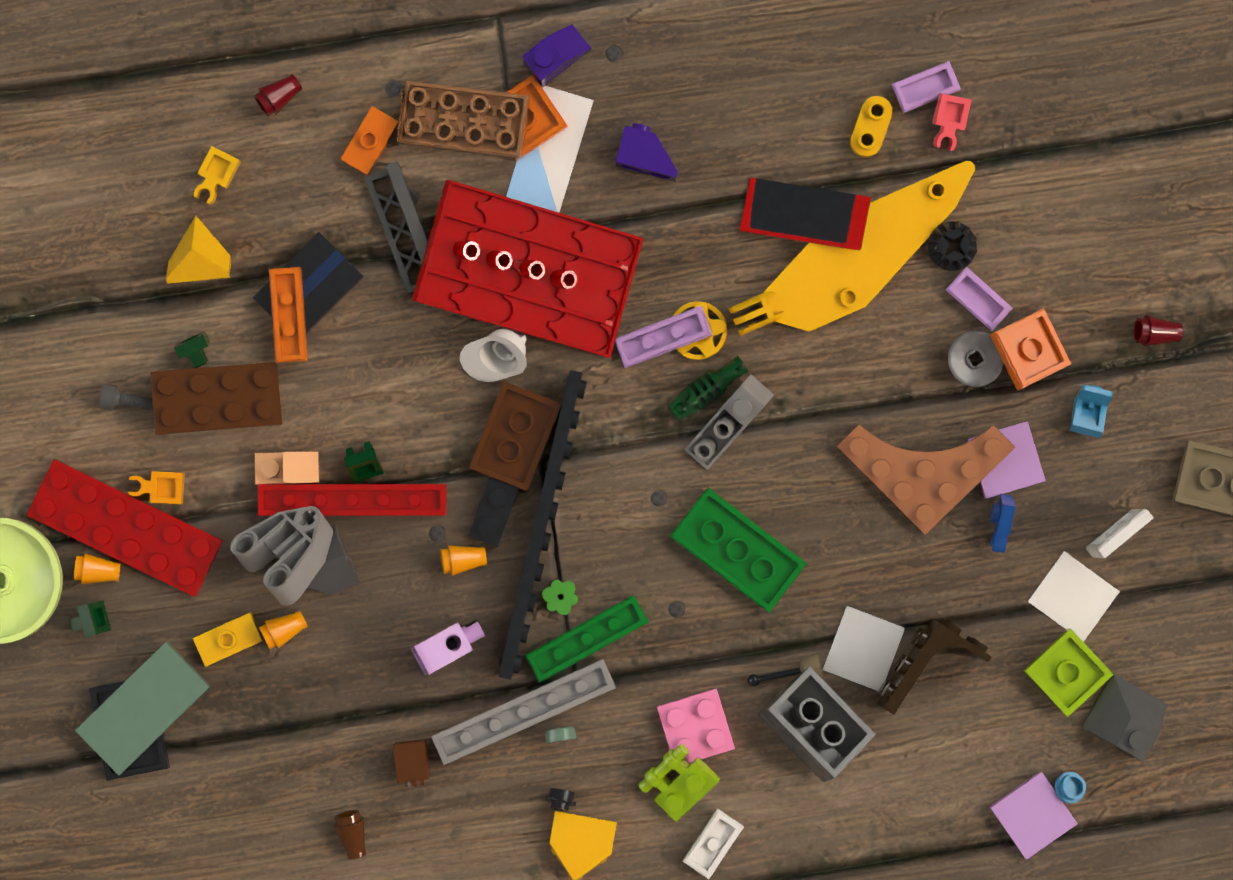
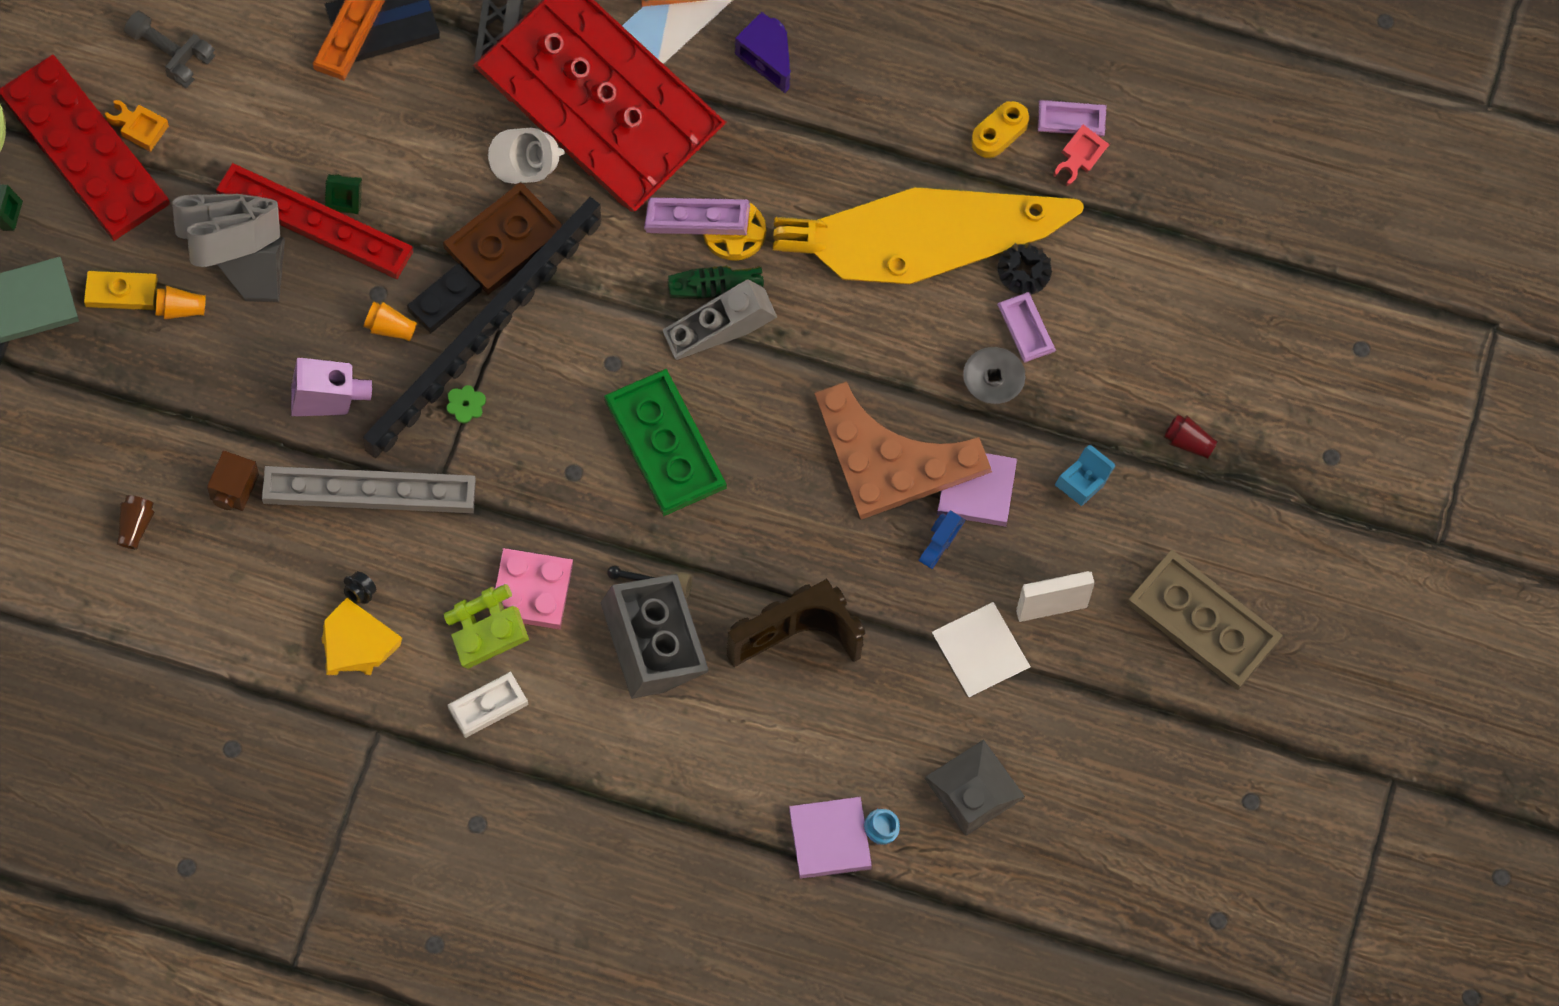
camera: 25 degrees right, 20 degrees down
(95, 569) = (32, 166): light orange cone -> none
(194, 349) = (243, 19): dark green tile -> none
(216, 398) = (238, 71): reddish brown plate -> none
(286, 468) = (271, 162): light nougat slope -> none
(560, 735) = (392, 528): sand green tile -> none
(586, 638) = (470, 455): green tile -> none
(805, 214) = (894, 172): black sticker -> none
(863, 648) = (738, 592): white sticker -> none
(1030, 349) = (1053, 393): orange tile -> none
(1068, 672) = (937, 713): lime plate -> none

